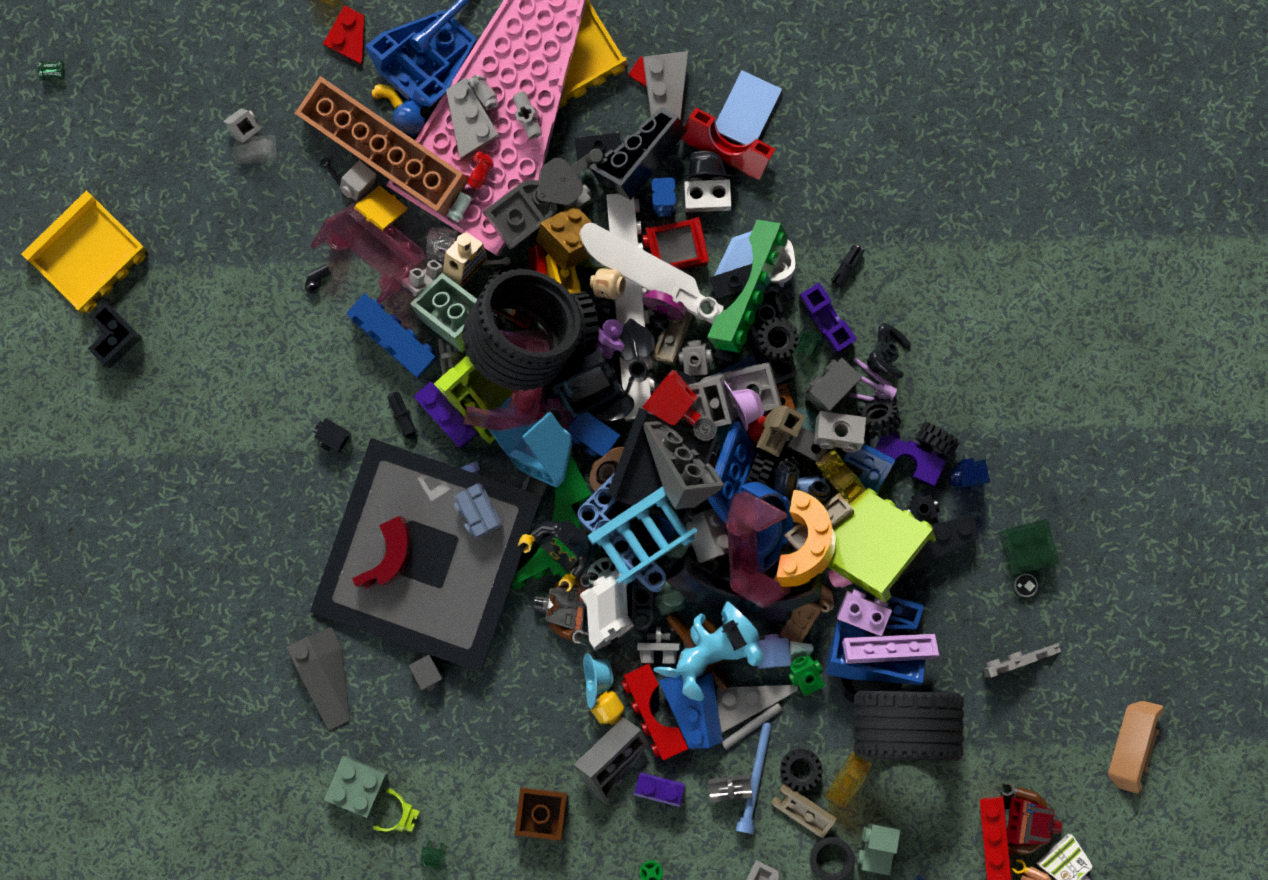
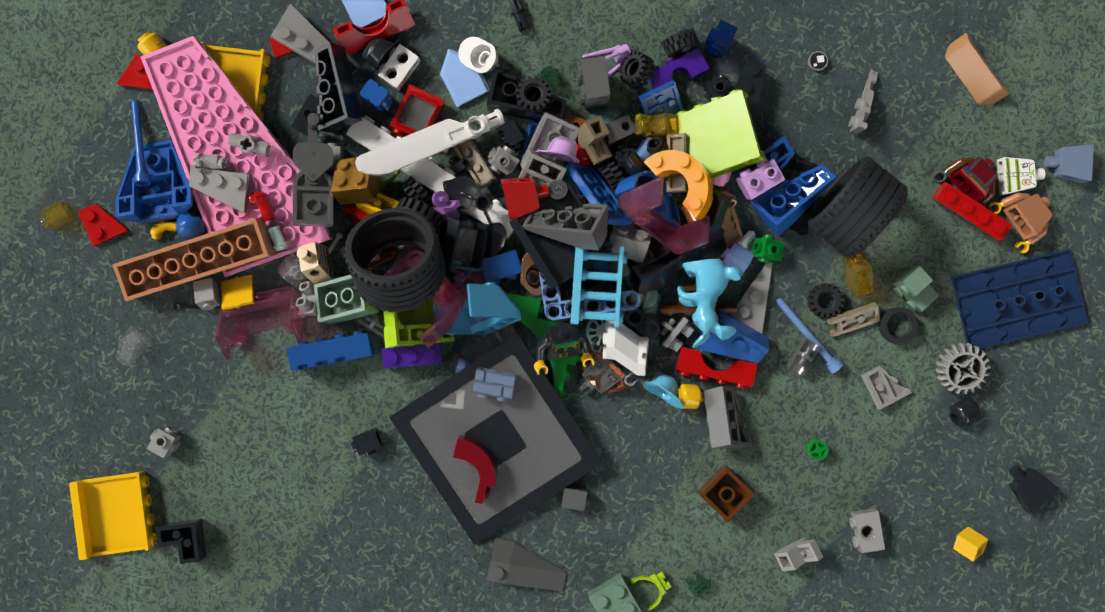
camera: 60 degrees left, 5 degrees up
(190, 247) = (164, 441): none -> light grey brick
(242, 124) = (106, 342): light grey brick -> none
(314, 278) = (251, 373): black arm -> none
(401, 414) = (388, 384): black axle -> none
(608, 283) = (408, 178): tan head -> none
(659, 789) = (768, 403): dark purple brick -> none
(663, 305) = (451, 152): magenta tile -> none
(730, 281) = (471, 94): black plate -> none
(732, 325) = (500, 116): arch -> none
(734, 634) = (711, 276): black pin -> none
(751, 726) = (772, 310): light grey bar -> none
(822, 313) = (553, 54): dark purple arch -> none
(851, 426) = (633, 91): light grey brick -> none
(887, 352) = (596, 30): black piece -> none
(890, 648) = (797, 180): lavender plate -> none
(1029, 547) = (796, 38): clear green brick -> none

